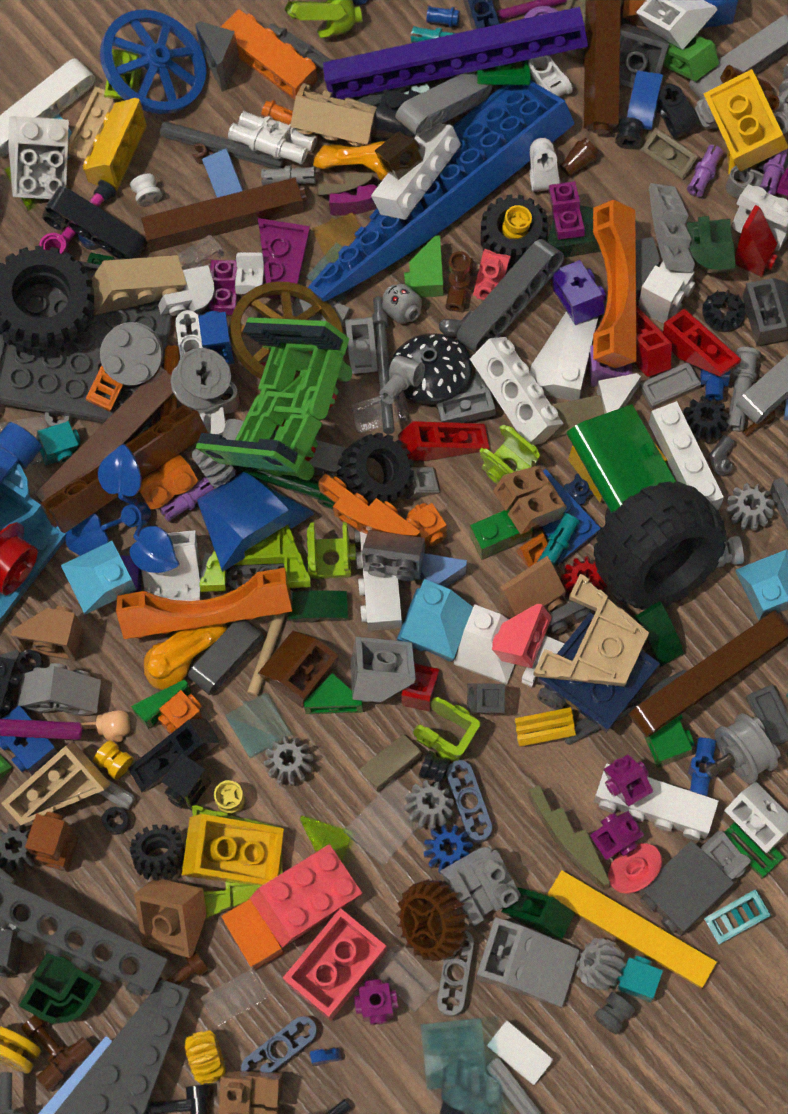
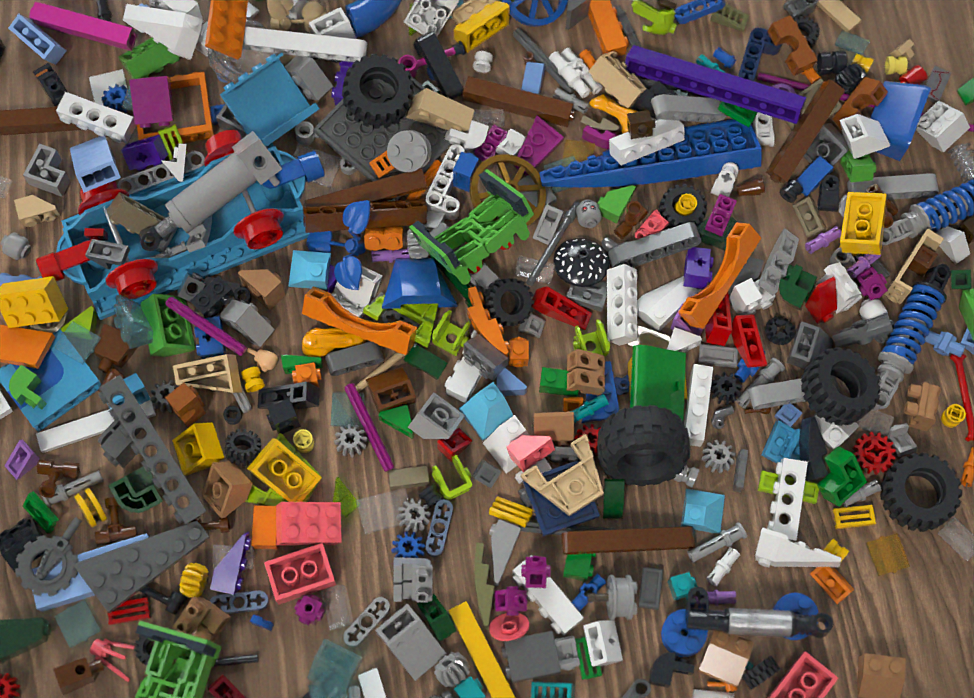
camera: 25 degrees right, 0 degrees up
(58, 443) = (338, 179): teal brick -> none
(99, 888) = (198, 448): none -> yellow slope
(214, 374) = (430, 186): light grey piece -> none
(242, 1018) = (228, 572): none -> slope
(301, 730) = (369, 427): none -> magenta axle
(401, 375) = (559, 255): light grey pin -> none
(432, 920) = (370, 583): reddish brown gear -> none
(561, 775) = (502, 544): none -> light grey slope

